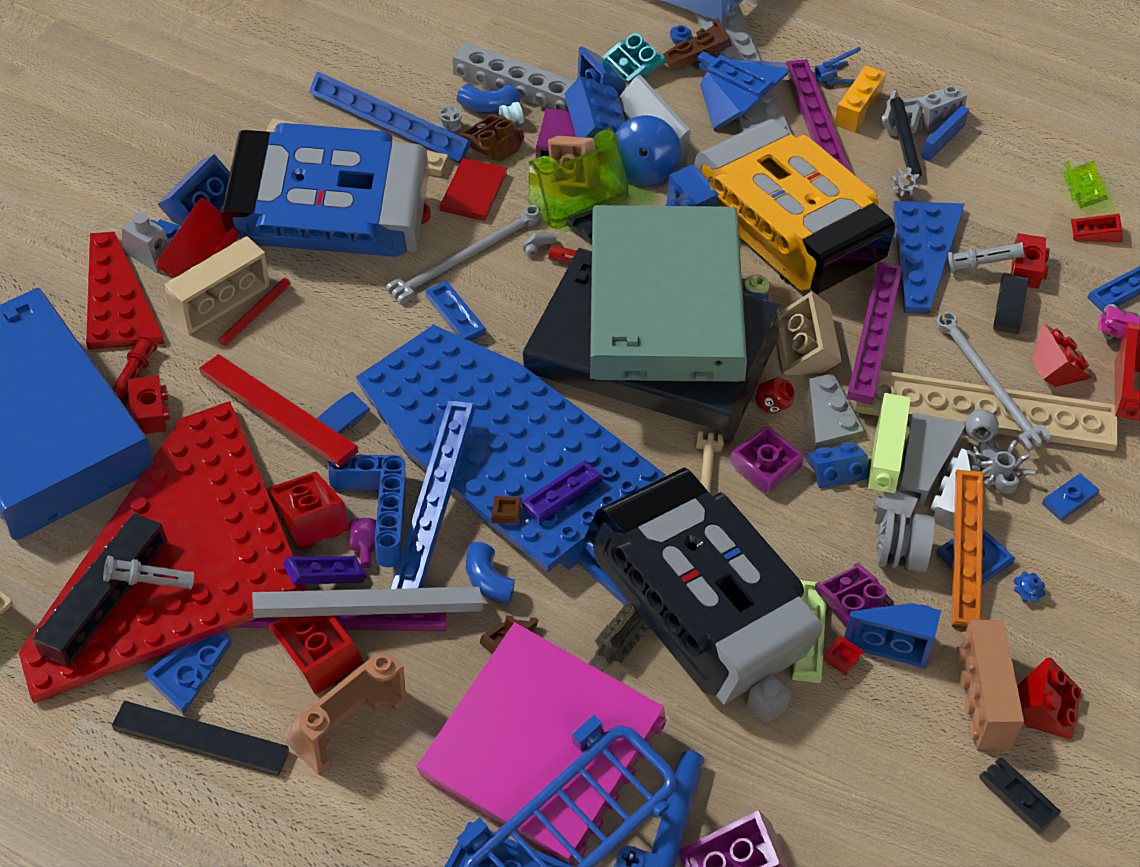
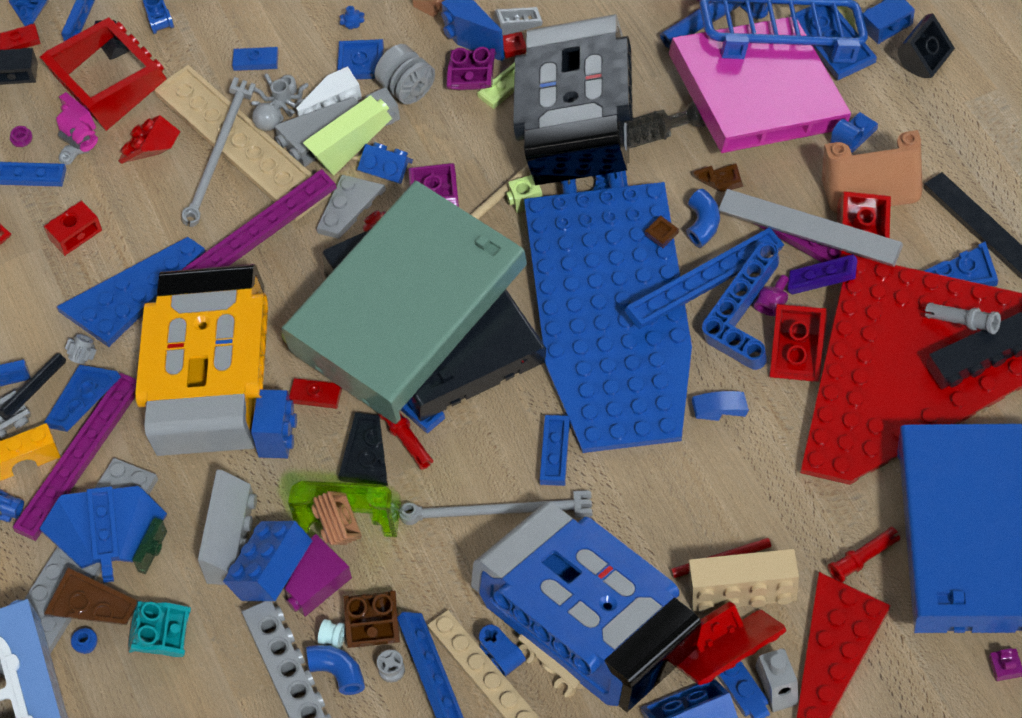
camera: 135 degrees left, 5 degrees up
(147, 403) = (871, 519): red brick -> none
(279, 410) = (770, 434): red tile -> none
(403, 776) = (854, 132): none -> blue plate
(473, 189) = (433, 575): red tile -> none
(531, 245) = (432, 481): light grey arm -> none
(562, 491) = (611, 221): dark purple tile -> none
(596, 68) = (215, 618): blue slope -> none
(662, 149) = (262, 493): blue dish -> none
(698, 98) = (150, 546): none -> clear green plate
(807, 337) = (300, 265): tan slope -> none
(865, 155) = (79, 395): none -> blue wing
(882, 673) = (510, 20): none -> light grey slope
(967, 547) = (366, 52): orange tile -> none
(972, 259) = (113, 247): light grey pin -> none
(1010, 303) = (127, 204): black beam -> none

